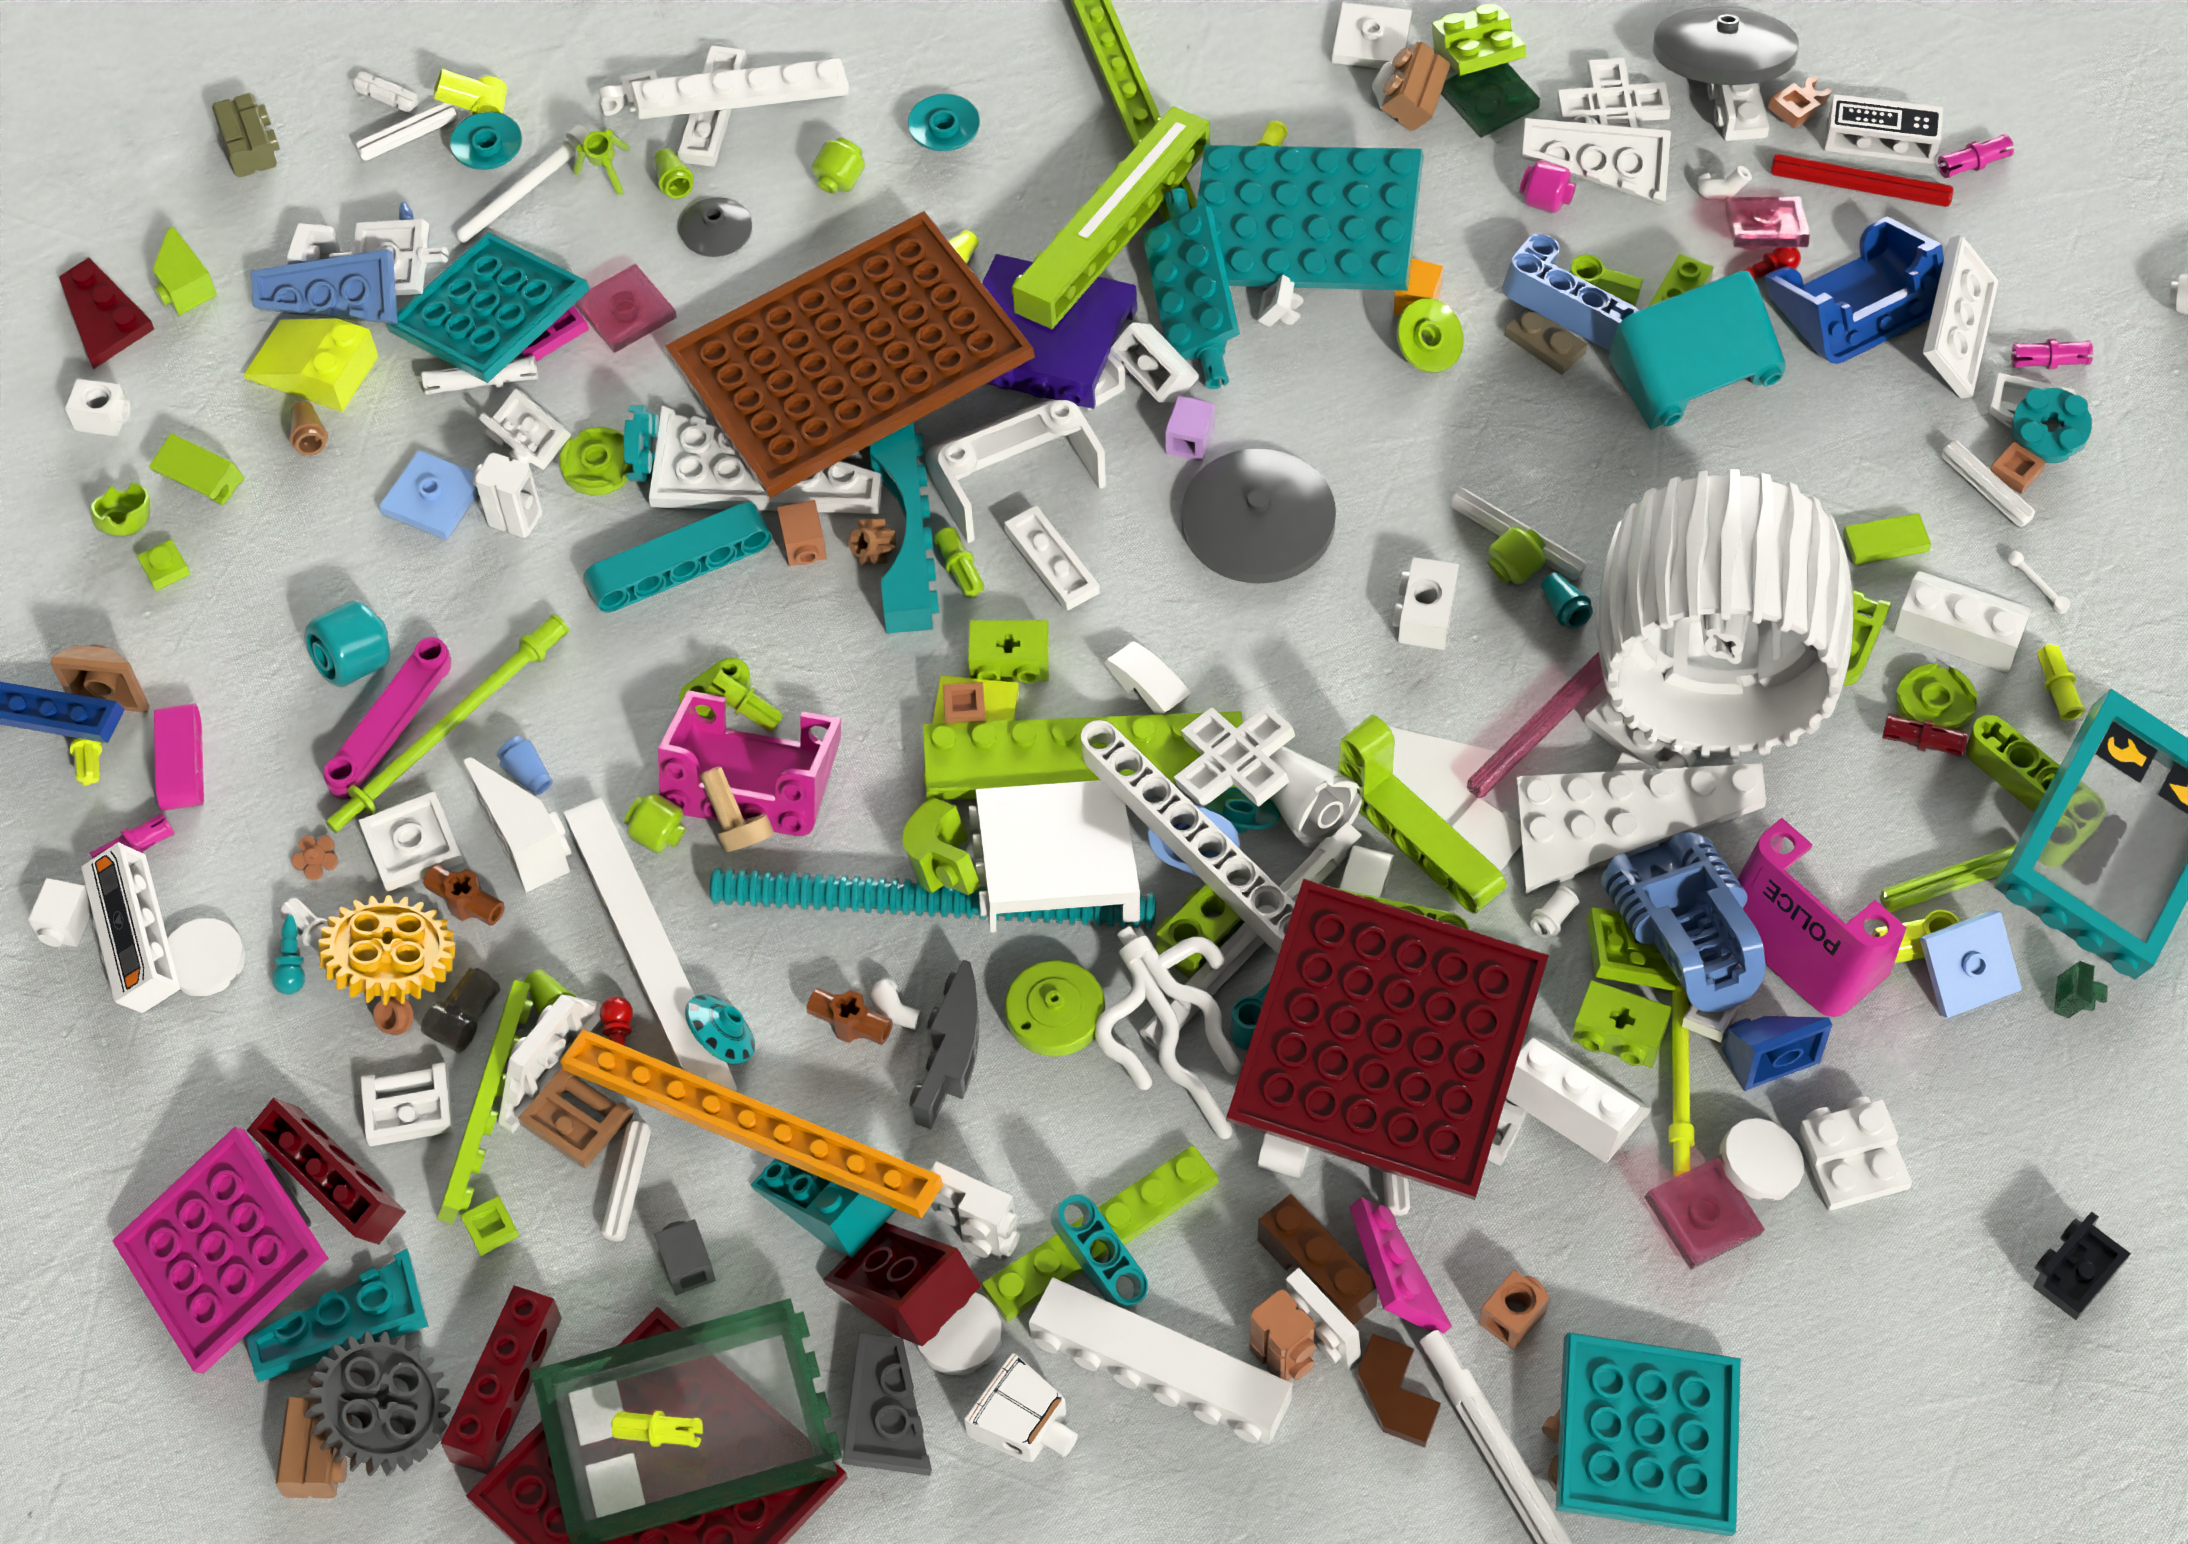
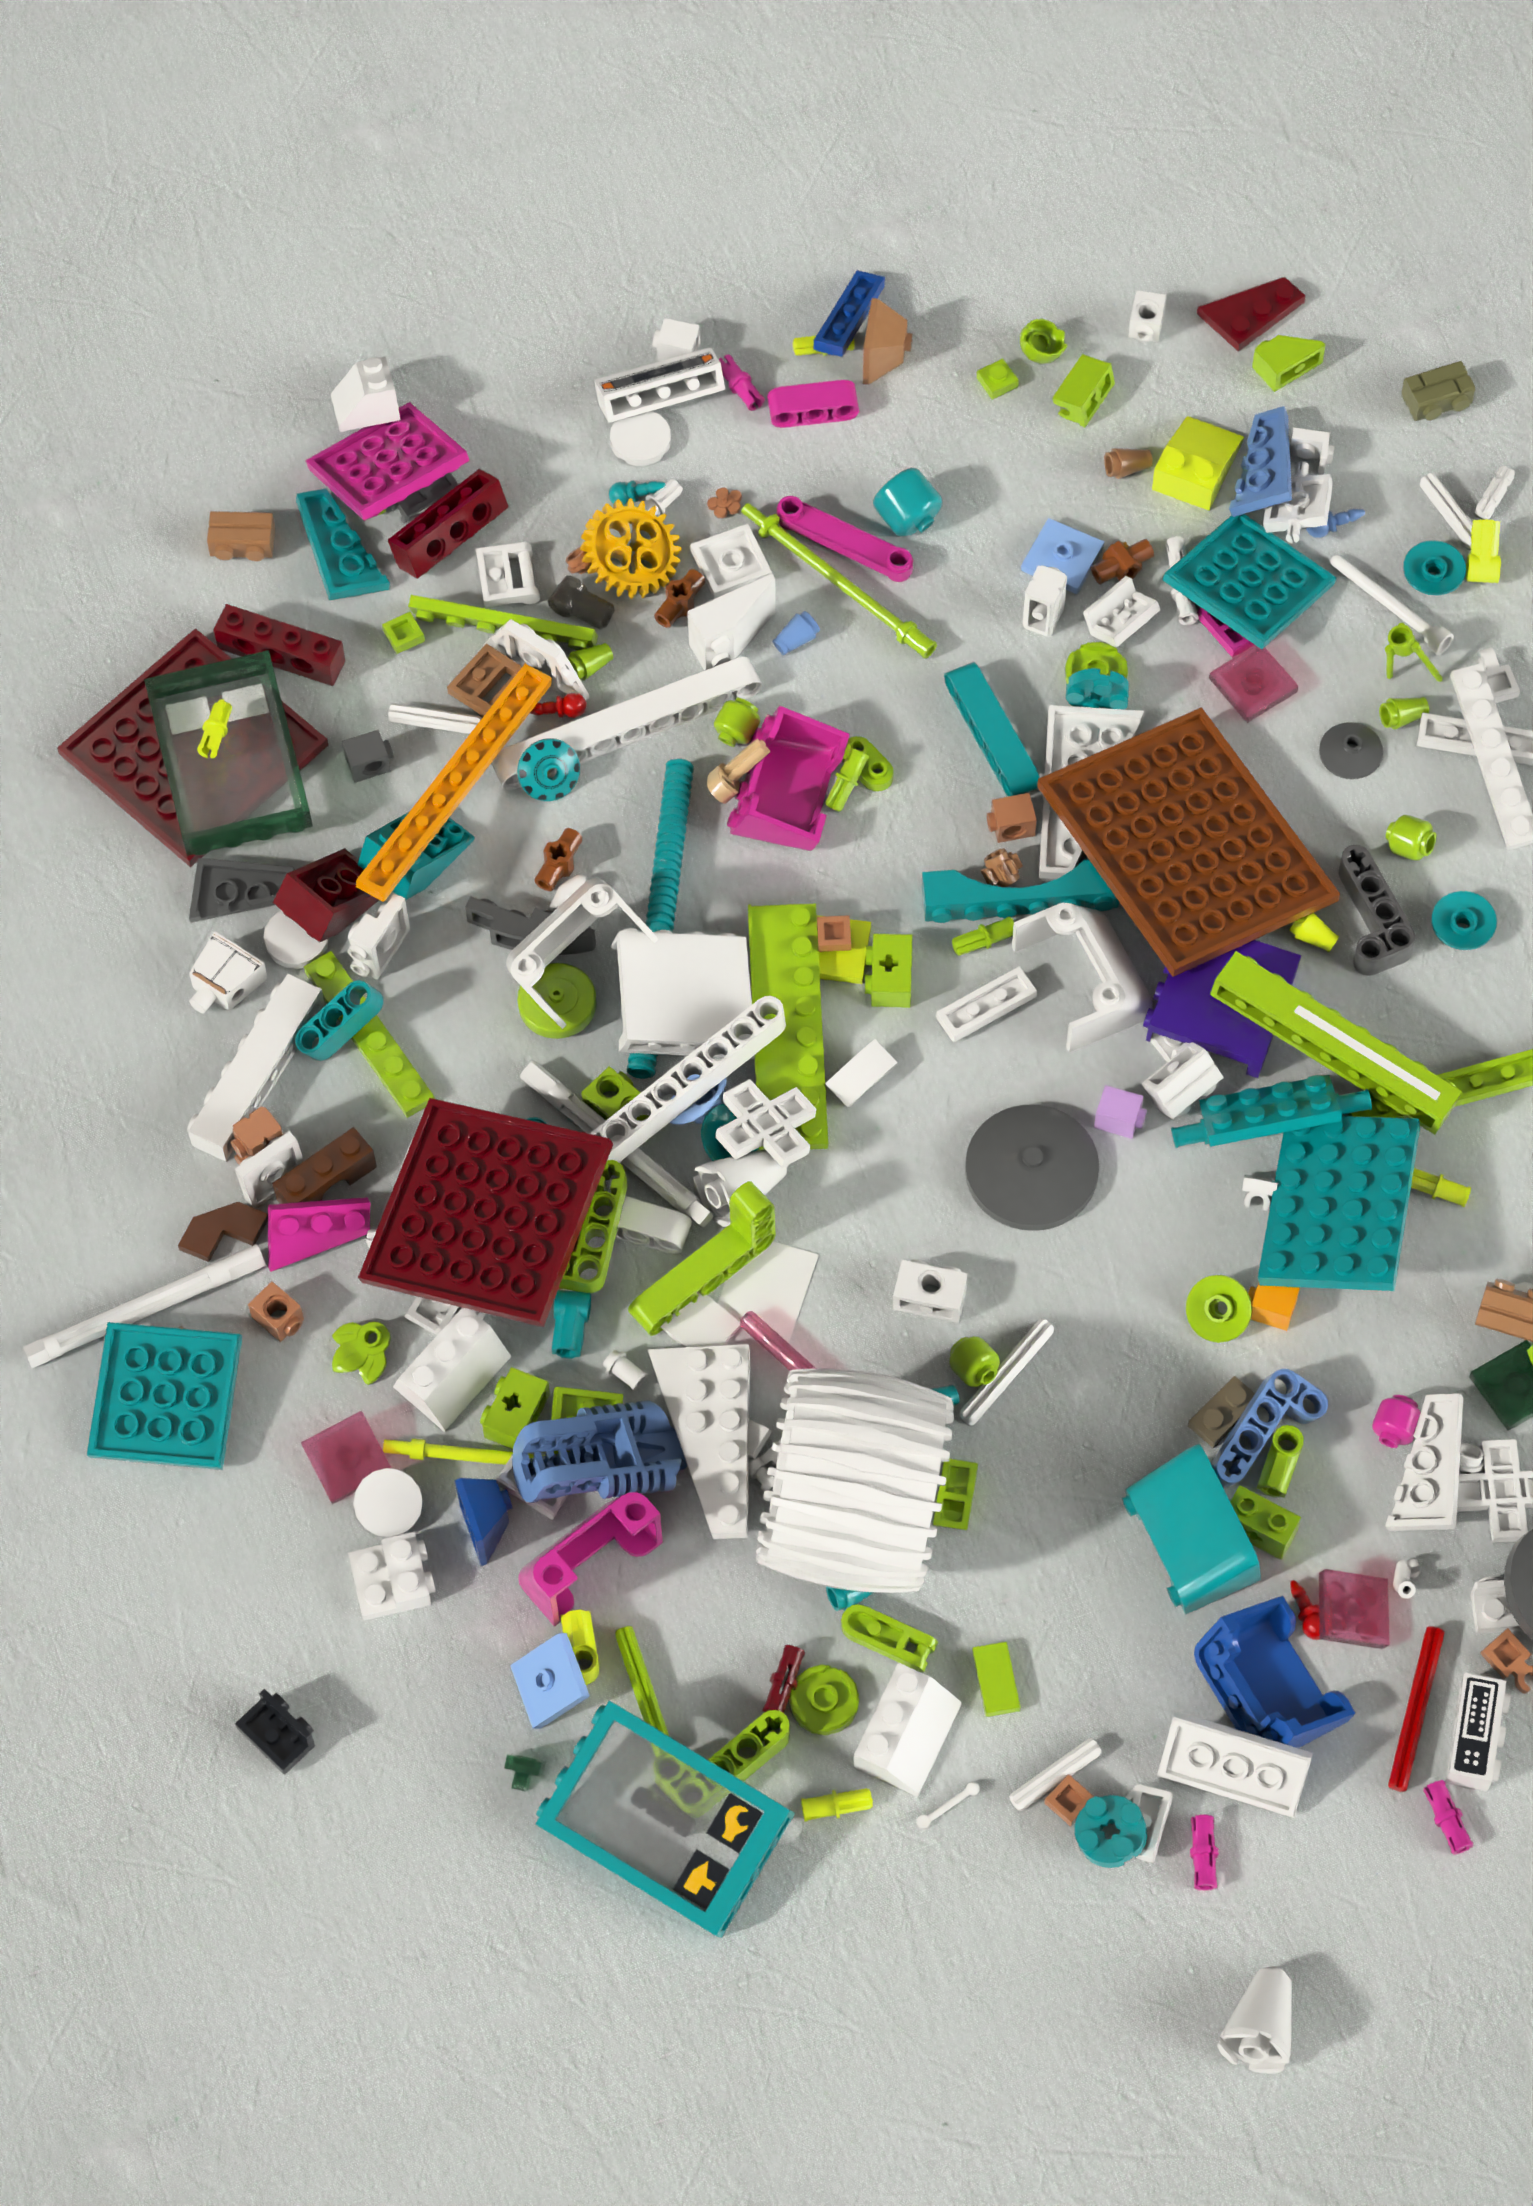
camera: 90 degrees right, 5 degrees up
(101, 1290) = (365, 396): none -> white slope
(377, 1441) = (292, 565): dark grey gear -> none
(449, 431) = (1122, 561): none -> dark orange axle
(932, 848) = (695, 904): lime arch -> none
(938, 192) = (1370, 906): none -> flat silver beam
(976, 979) = (559, 930): none -> white windscreen
(1148, 974) = (562, 1065): white plant -> none
(1556, 1215) = (357, 1353): none -> lime plate

